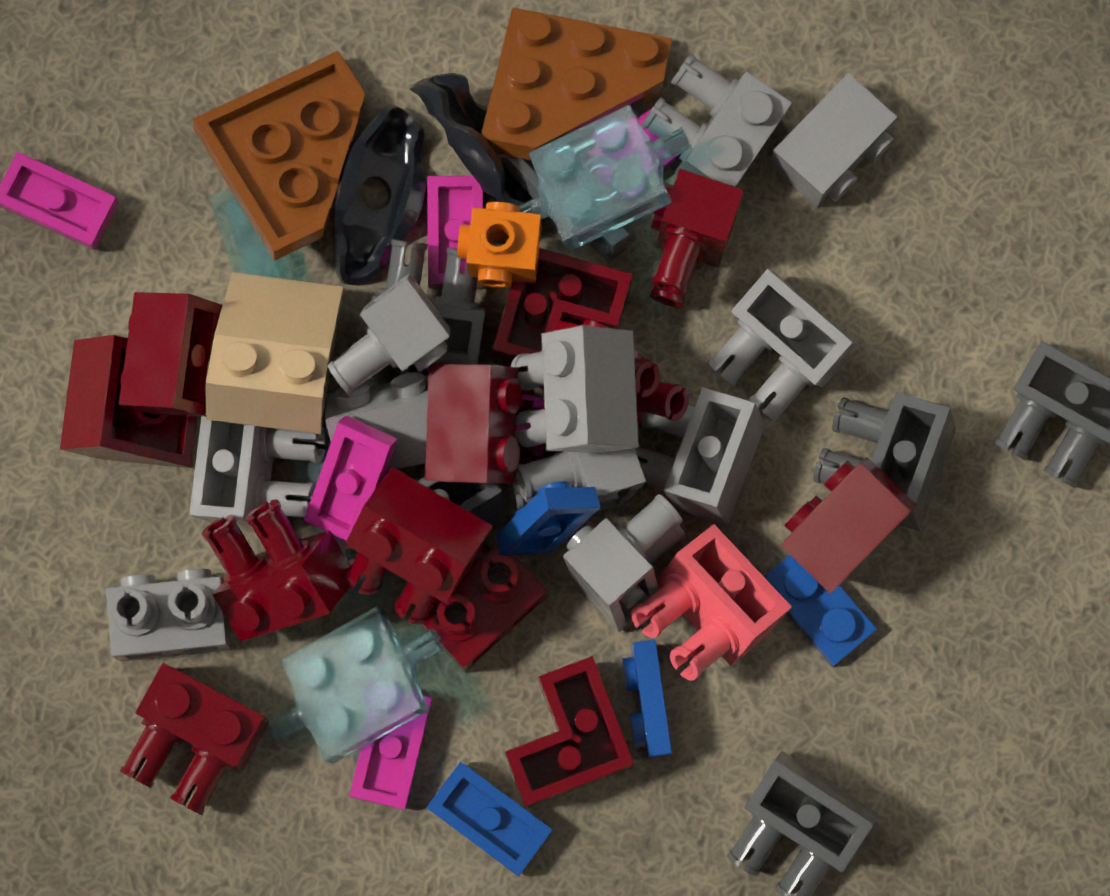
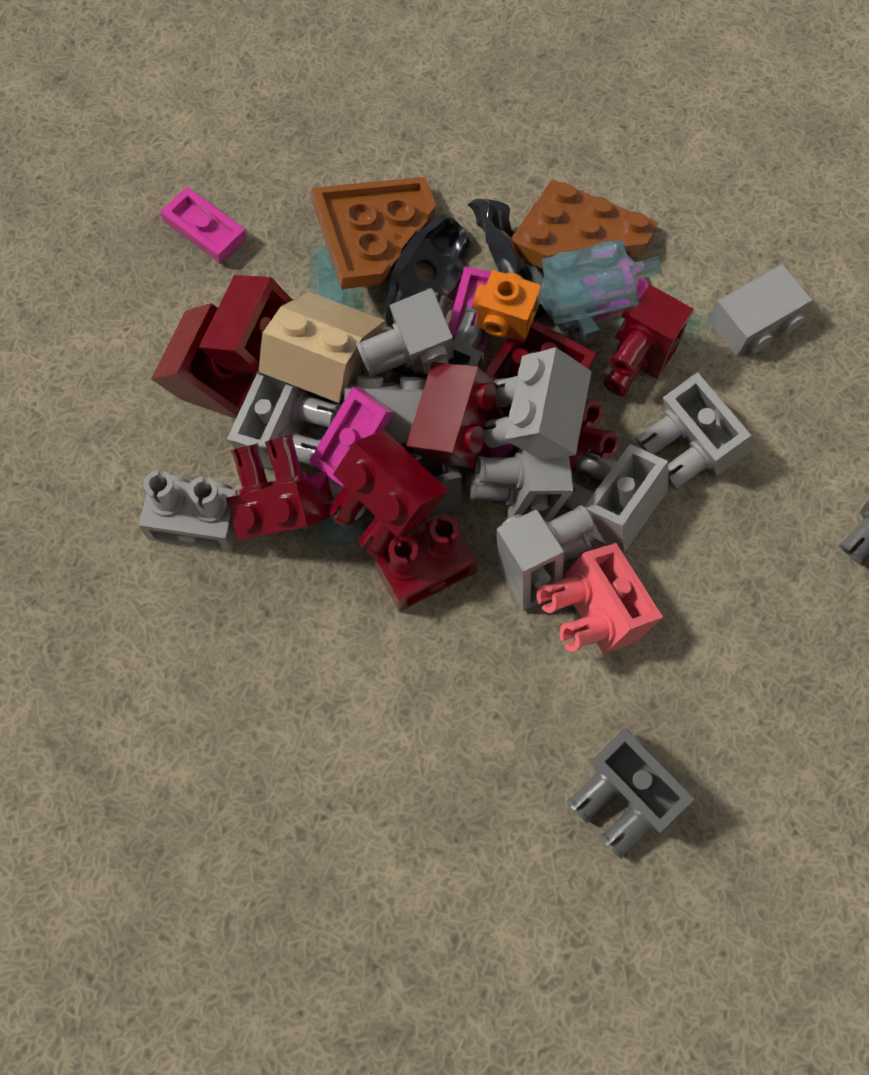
camera: 15 degrees right, 10 degrees down
(188, 710) = (200, 599): dark red brick -> none
(355, 685) = (314, 594): clear light blue plate -> none
(389, 764) = (327, 650): dark pink plate -> none
(489, 819) = (388, 723): blue plate -> none
(548, 519) = (492, 501): blue plate -> none
(586, 740) = (475, 683): dark red brick -> none
(650, 725) = (531, 683): blue plate -> none
(741, 121) = (698, 273): light grey brick -> none
(826, 619) = (683, 631): blue plate -> none
(848, 525) = (722, 561): dark red brick -> none
(909, 450) = (771, 537): dark grey brick -> none

